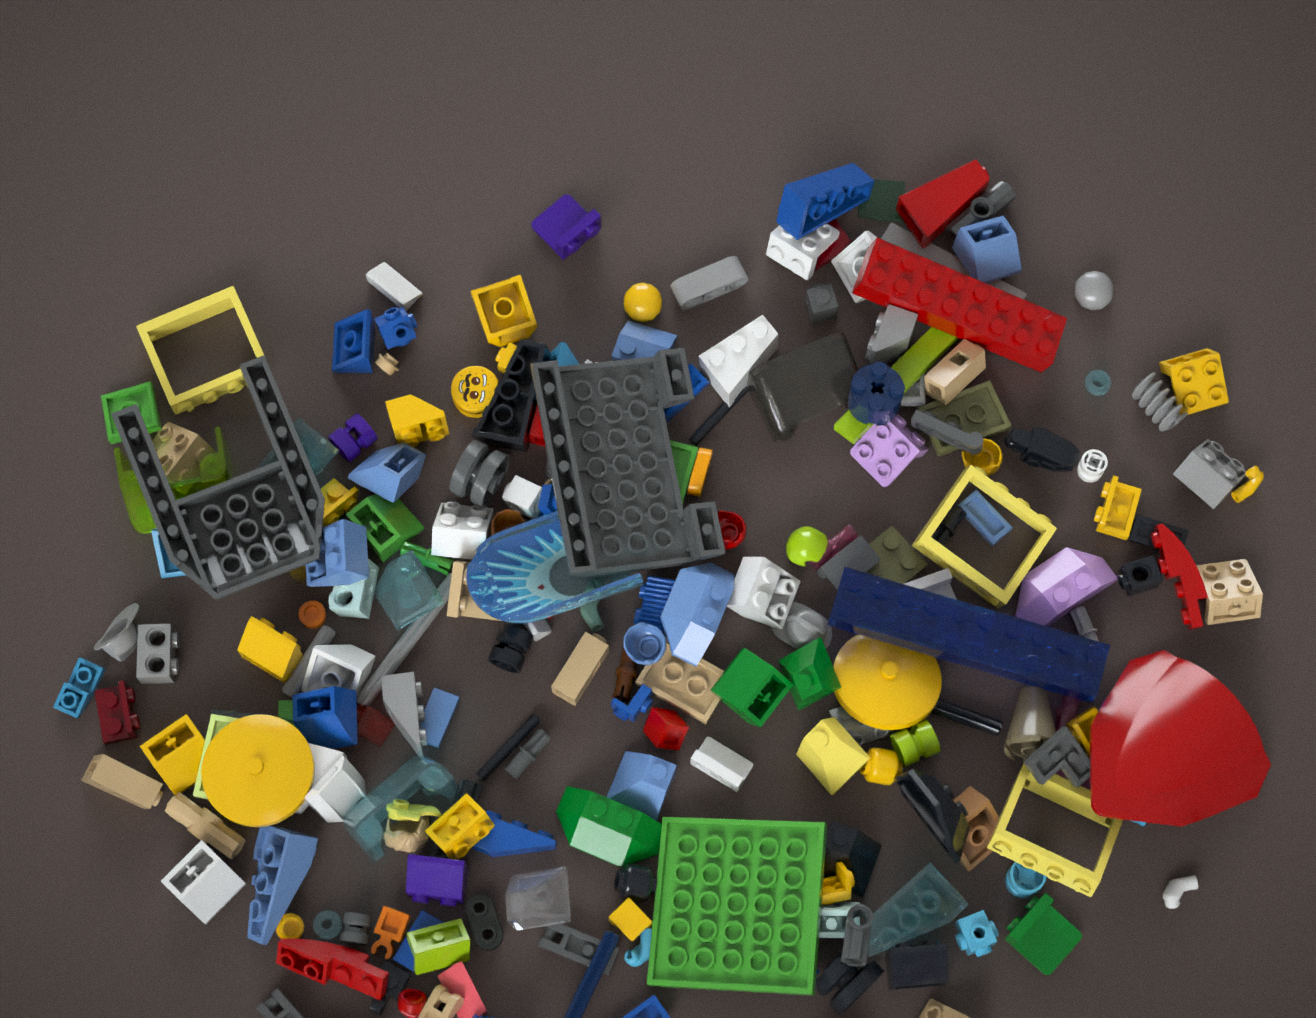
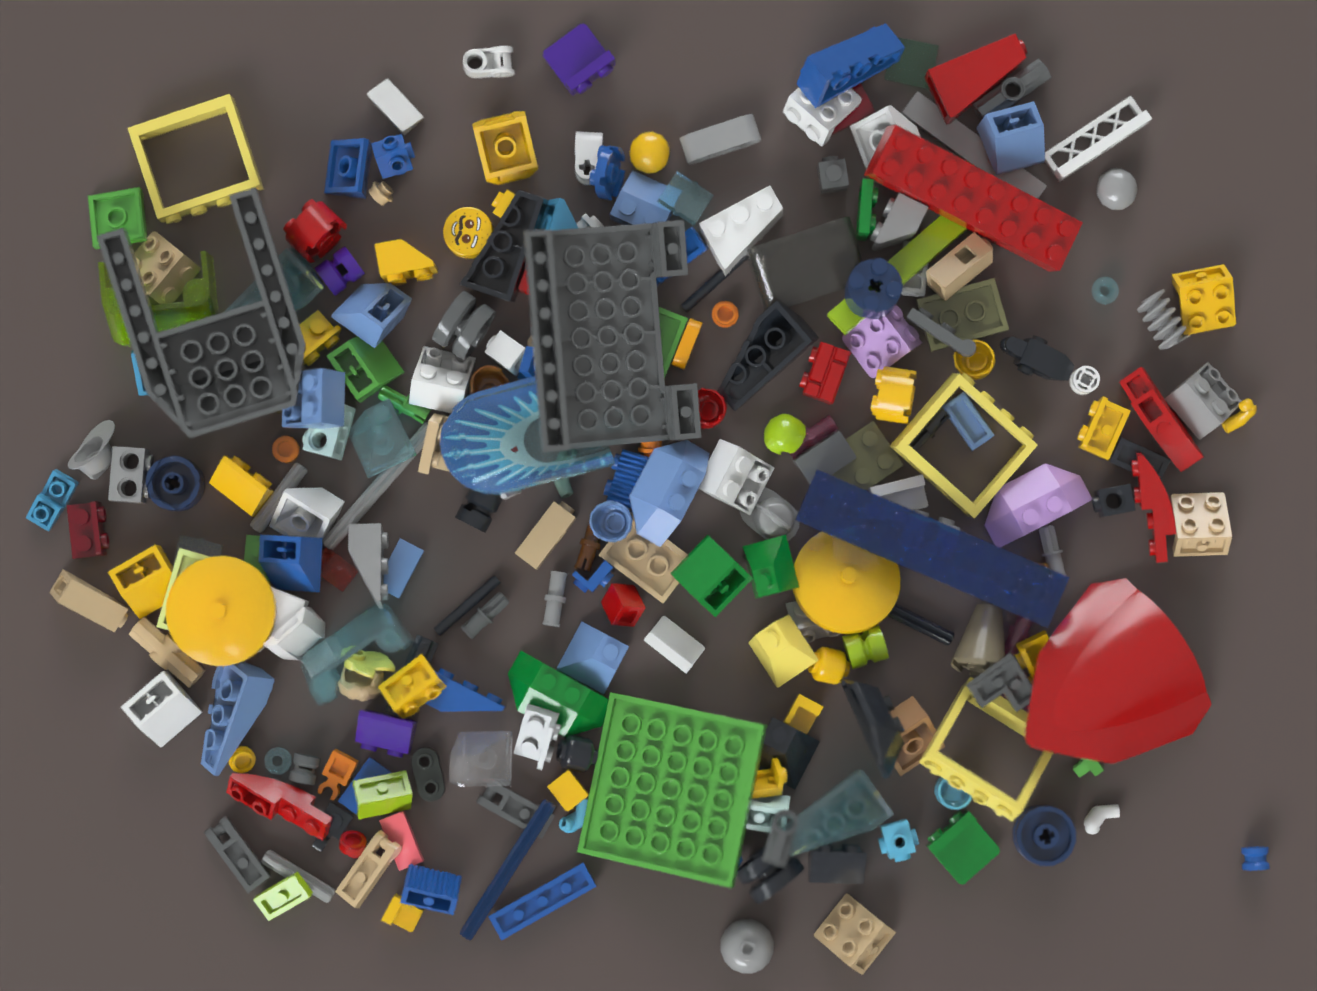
camera: 10 degrees right, 15 degrees up
(197, 642) = (162, 492): none -> dark blue brick
(325, 401) = (314, 230): none -> red brick
(482, 236) = (491, 62): none -> white piece
(584, 310) = (586, 153): none -> white piece
(592, 865) = (536, 734): none -> bracket
(596, 730) = (555, 598): none -> light grey pin
(604, 321) = (608, 176): none -> blue plate
(672, 571) = (647, 447): none -> orange plate
(680, 335) = (685, 198): none -> clear light blue piece
(733, 442) = (725, 314): none -> orange plate
(783, 466) = (772, 345): none -> black wedge
(839, 485) = (826, 372): none -> red brick
(857, 327) = (866, 201): none -> green plate
(862, 815) = (802, 713): none -> yellow panel
(908, 496) = (894, 394): none -> yellow brick
(1069, 253) = (1101, 146): none -> white fence
(1136, 901) = (1059, 839): none -> dark blue wheel
(1158, 834) = (1085, 766): none -> bright green tile
(1173, 494) = (1160, 419): none -> red slope

